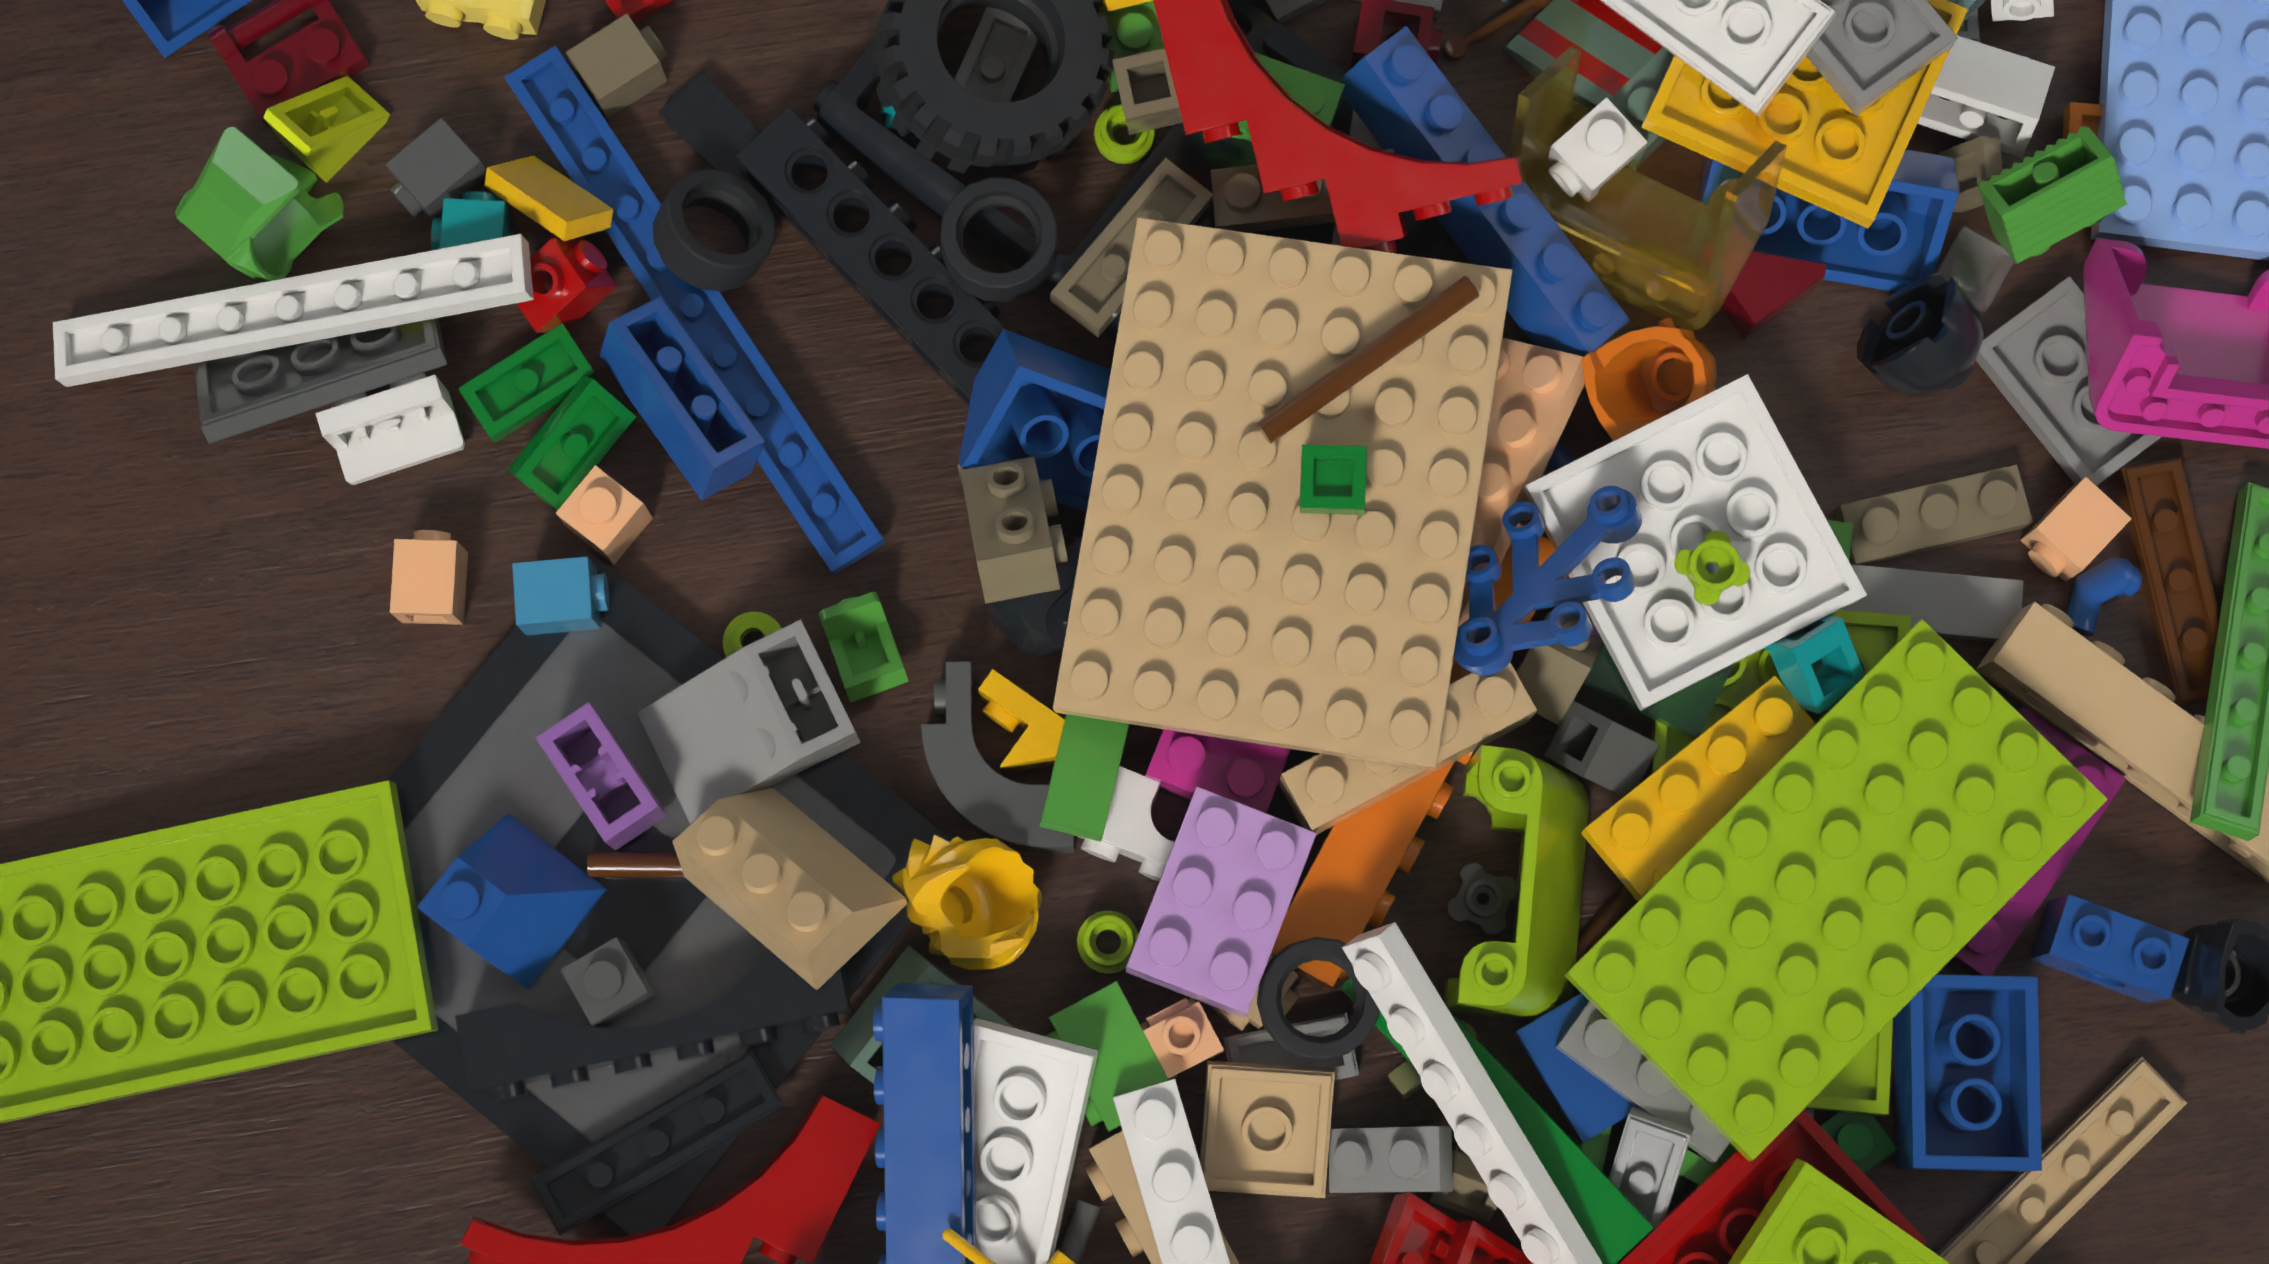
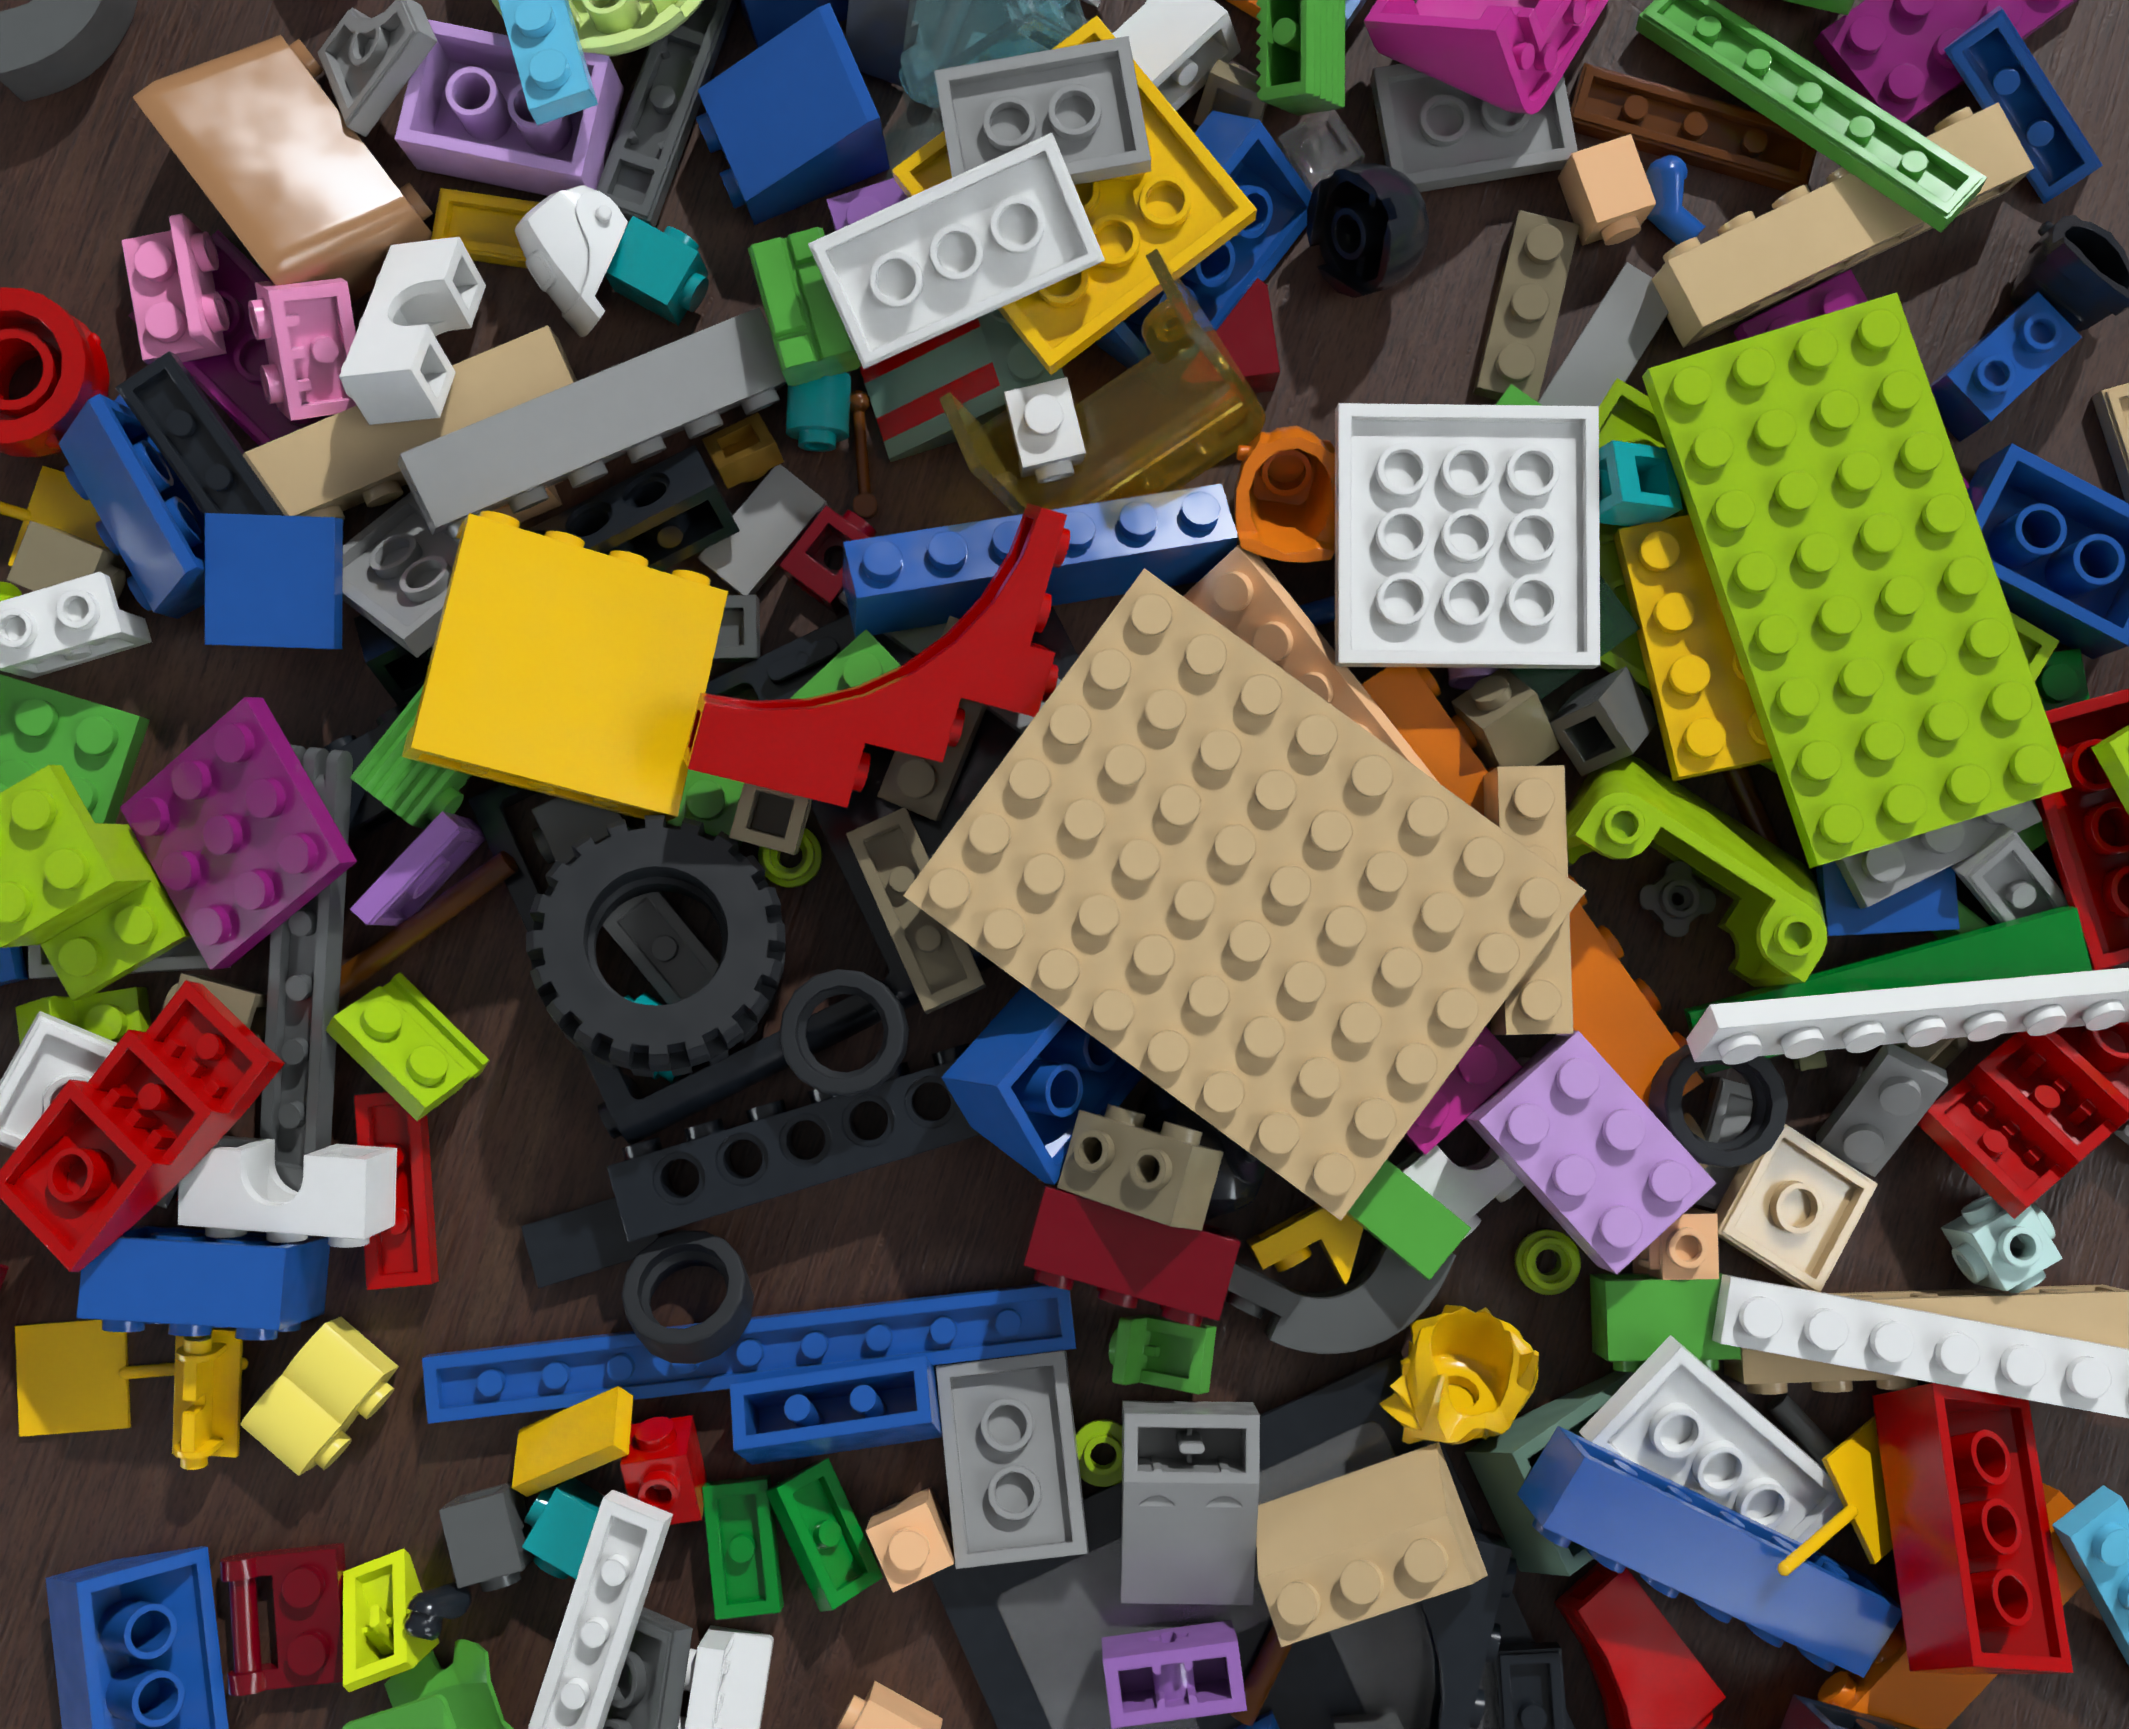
camera: 60 degrees left, 5 degrees up
(360, 151) = (431, 1606): none -> black arm
(559, 595) = (972, 1625): dark azure brick -> none
(619, 64) = (473, 1305): dark tan brick -> none
(712, 564) = (1011, 1460): none -> light grey plate
(934, 567) = (1131, 1257): none -> dark red brick
(1333, 479) = (1270, 845): green plate -> none
(1367, 359) = (1166, 750): reddish brown bar -> none
(1611, 519) = (1453, 699): blue plant -> none
(1718, 550) = (1521, 519): lime plate -> none

